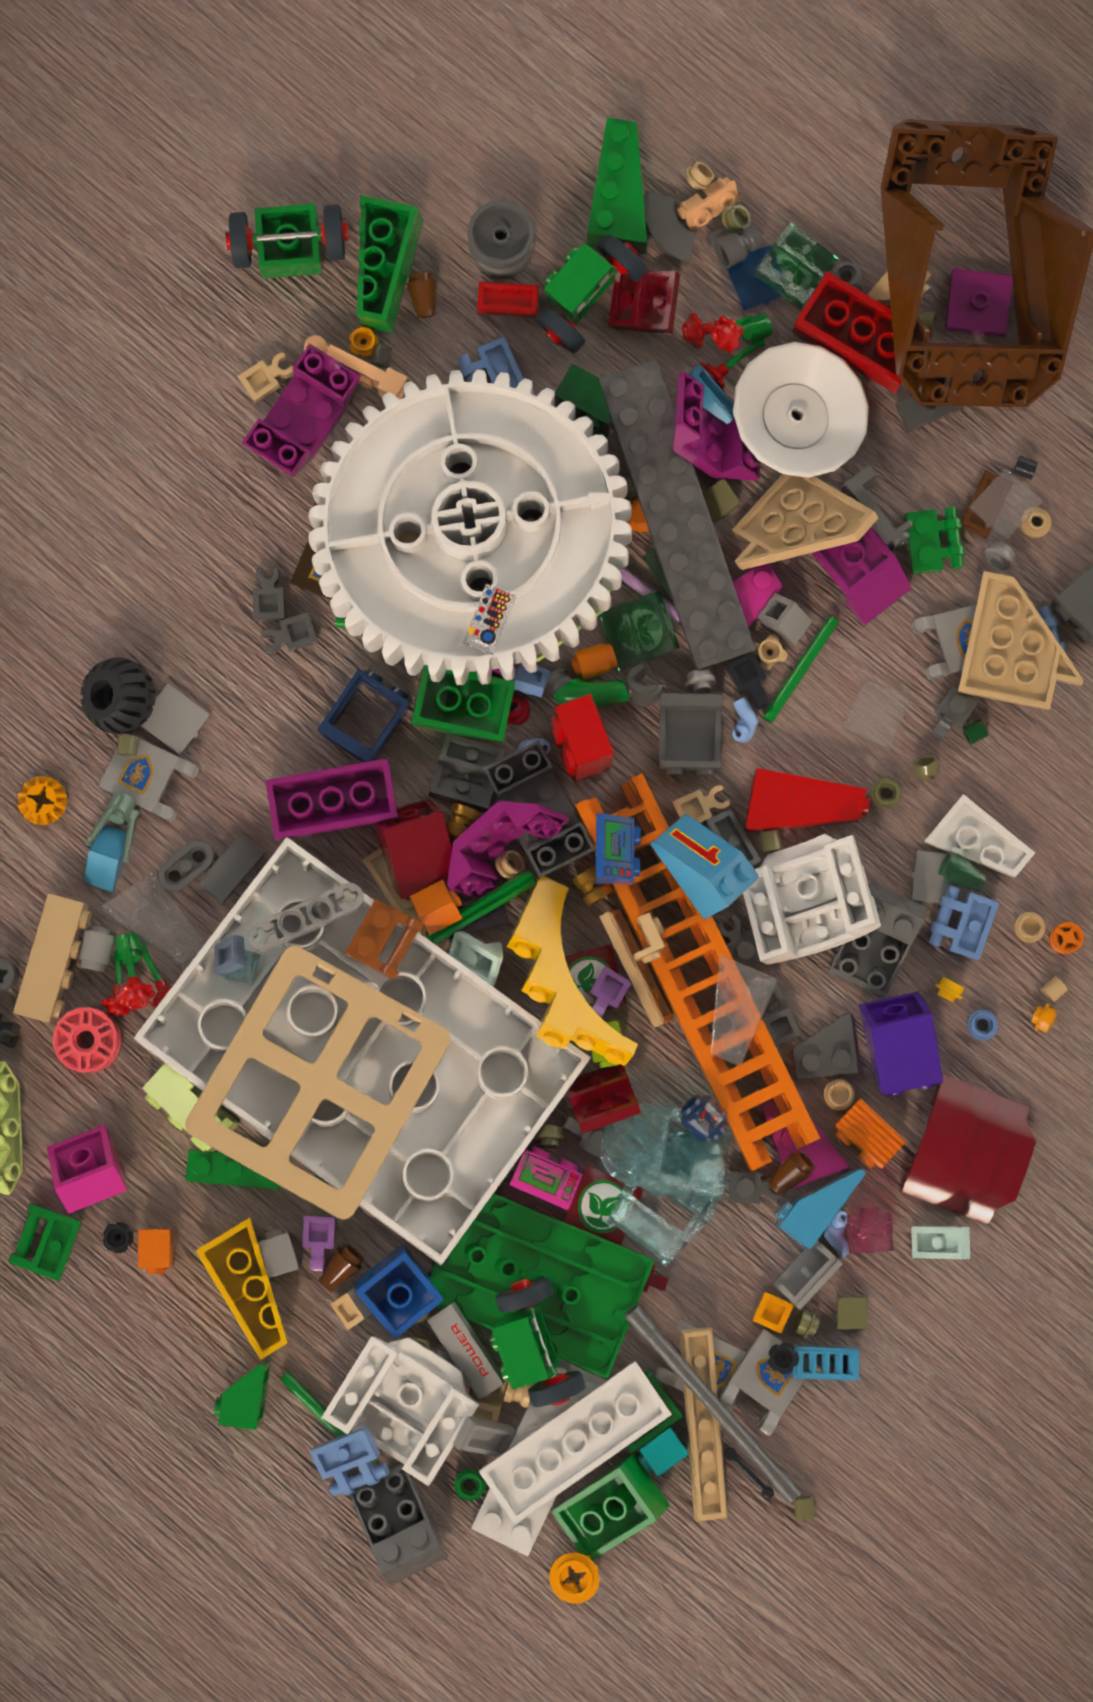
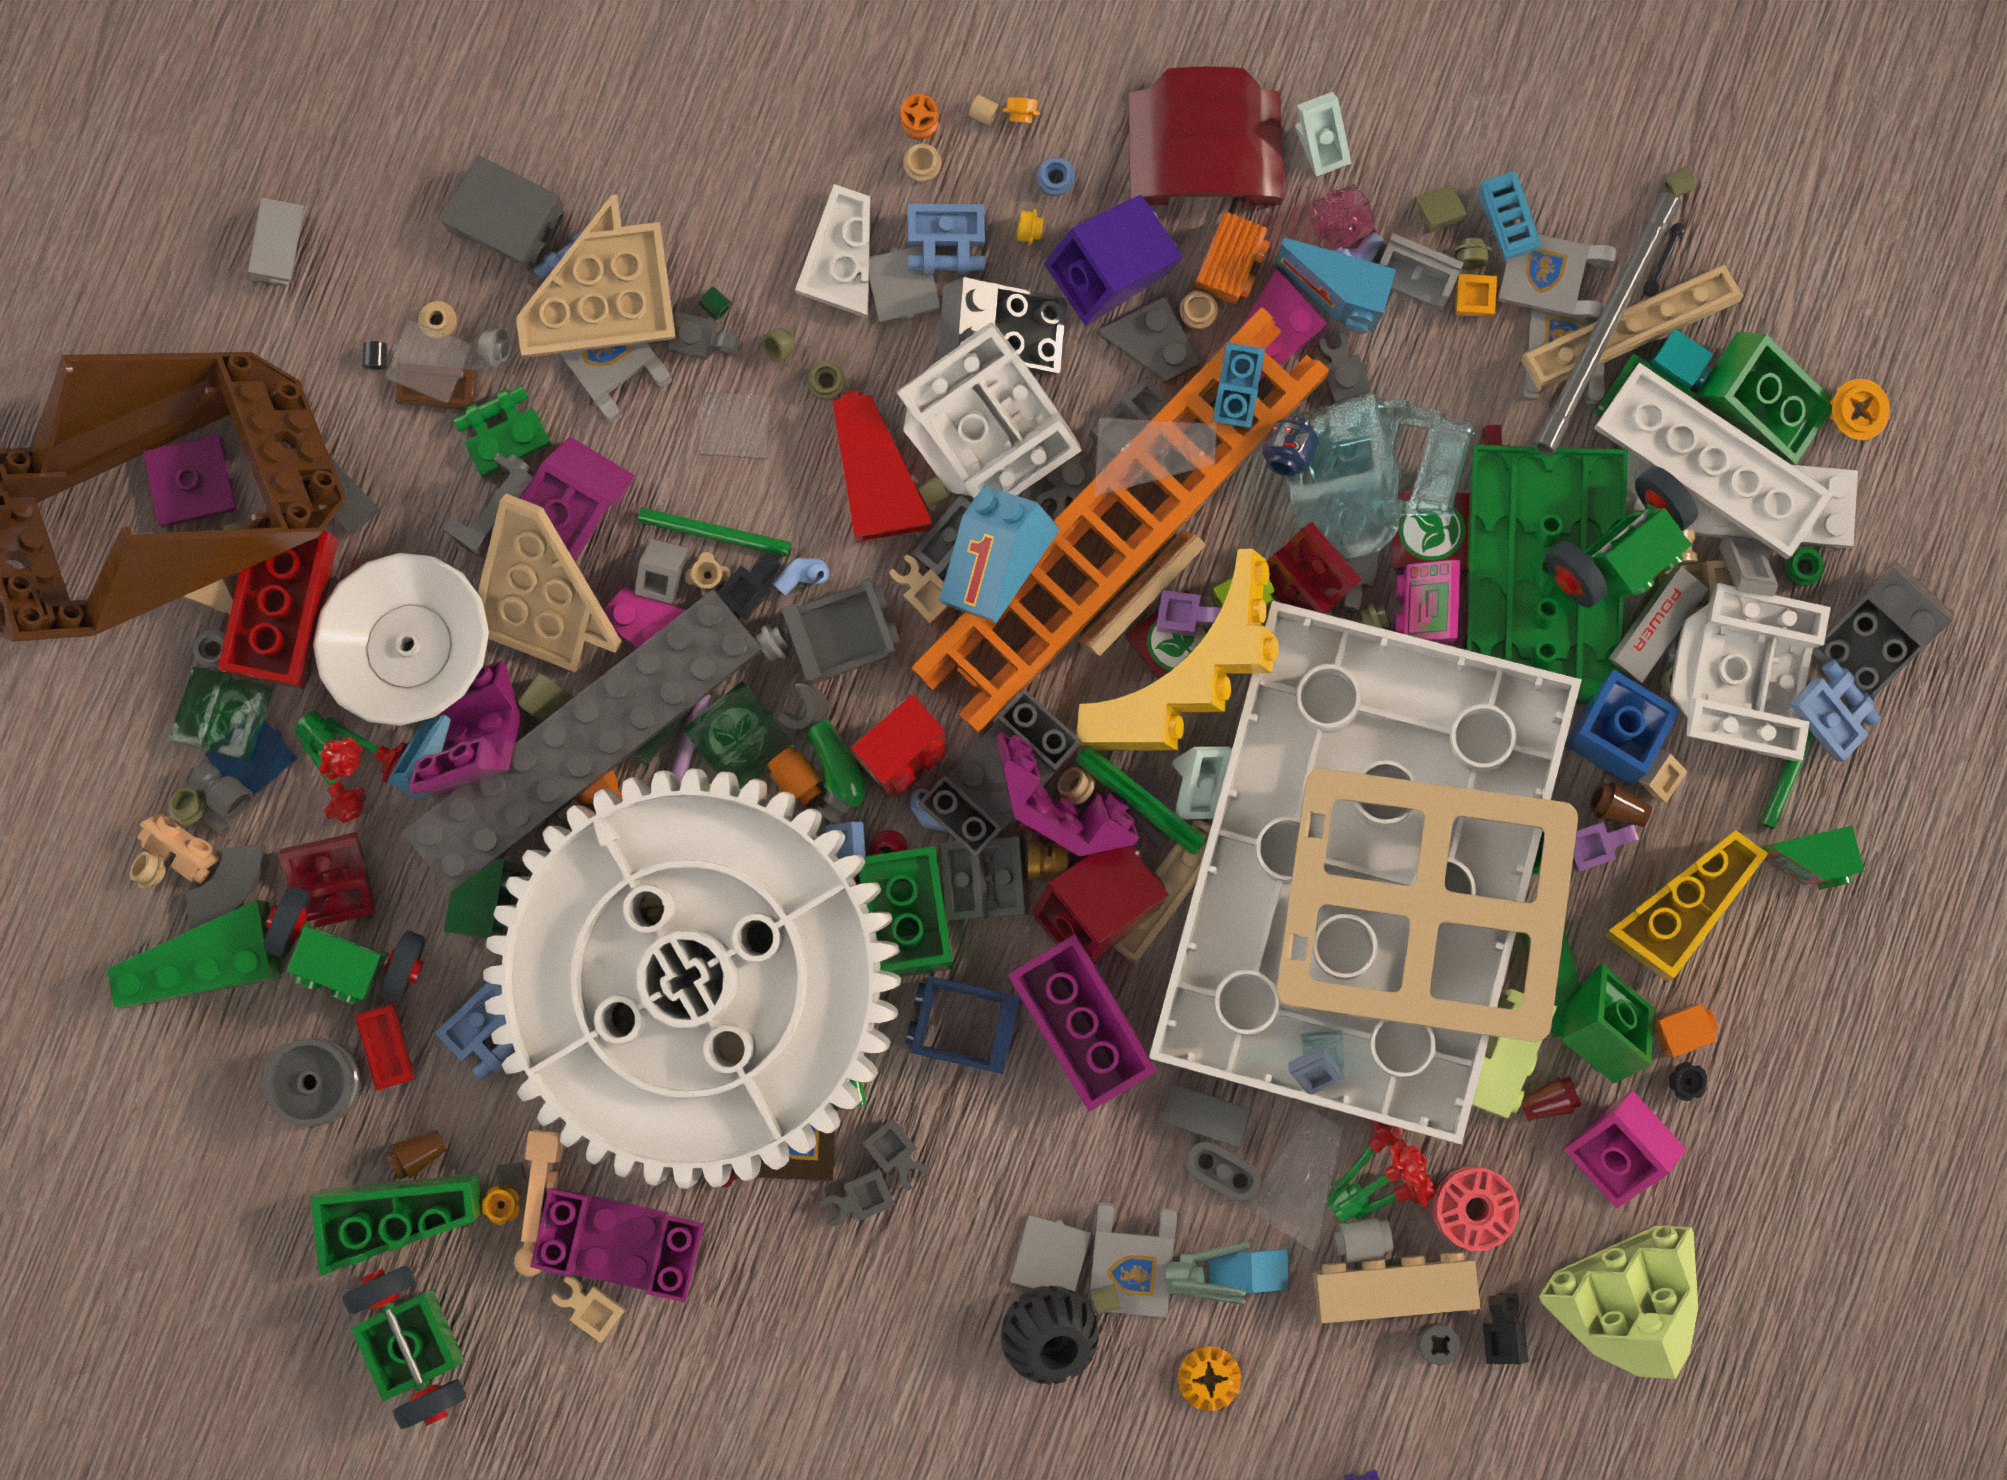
camera: 110 degrees left, 0 degrees up
(54, 1246) = (1728, 1151): green plate -> none
(143, 1129) = (1551, 1100): none -> dark red cone
(180, 1192) = (1609, 1025): none -> green slope
(279, 1253) = (1633, 883): light grey brick -> none
(308, 921) = (1240, 992): light grey beam -> none
(375, 933) = (1225, 905): dark orange plate -> none
(437, 906) = (1162, 849): orange brick -> none
(489, 619) = (803, 904): tile -> none
(586, 881) = (1057, 685): pearl gold wheel -> none
(616, 849) = (1019, 660): blue slope -> none
(652, 932) = (1097, 583): tan bracket -> none
(765, 1096) = (1238, 384): none -> dark azure slope
(776, 1352) = (1528, 254): black plate -> none
(792, 1172) = (1310, 326): reddish brown cone -> none
(961, 872) = (888, 260): clear green cone -> none

